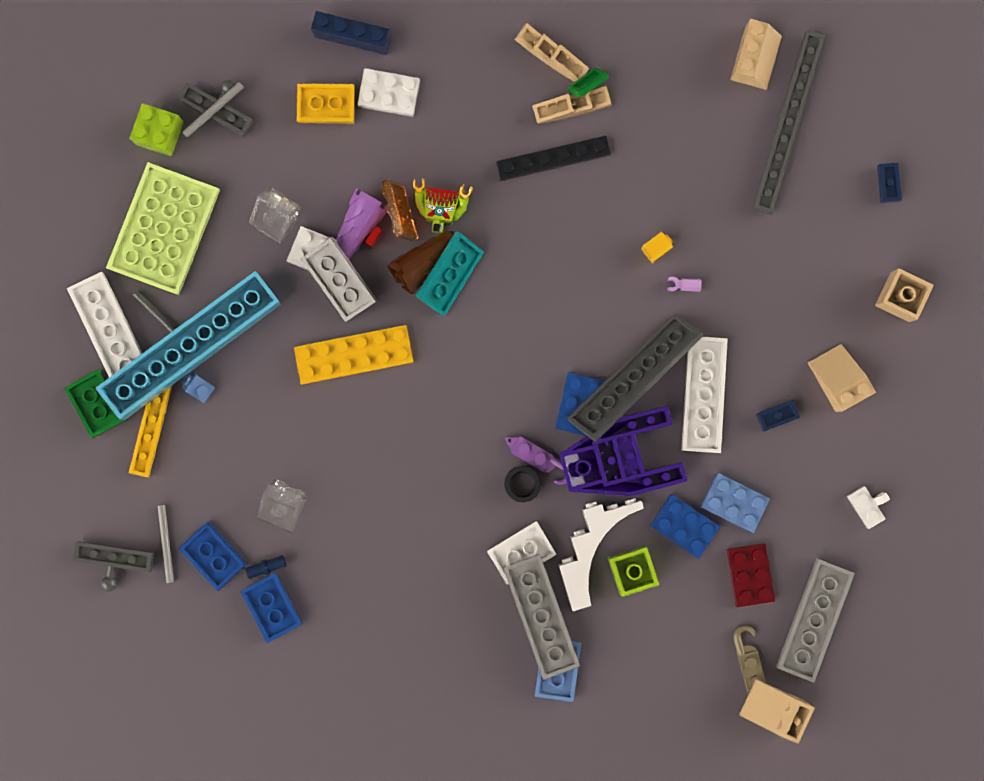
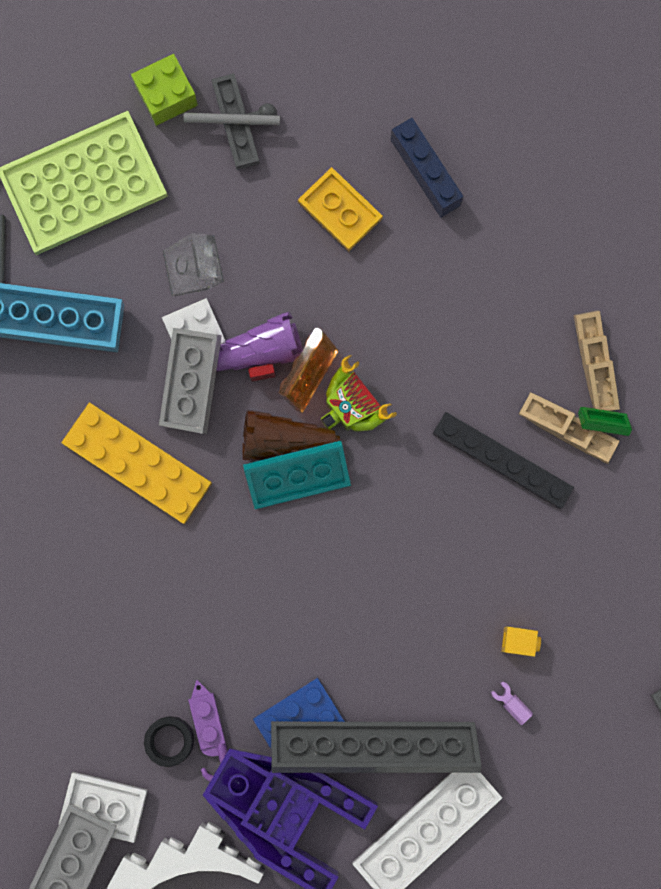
camera: 50 degrees right, 5 degrees down
(388, 92) = (408, 253): white plate -> none

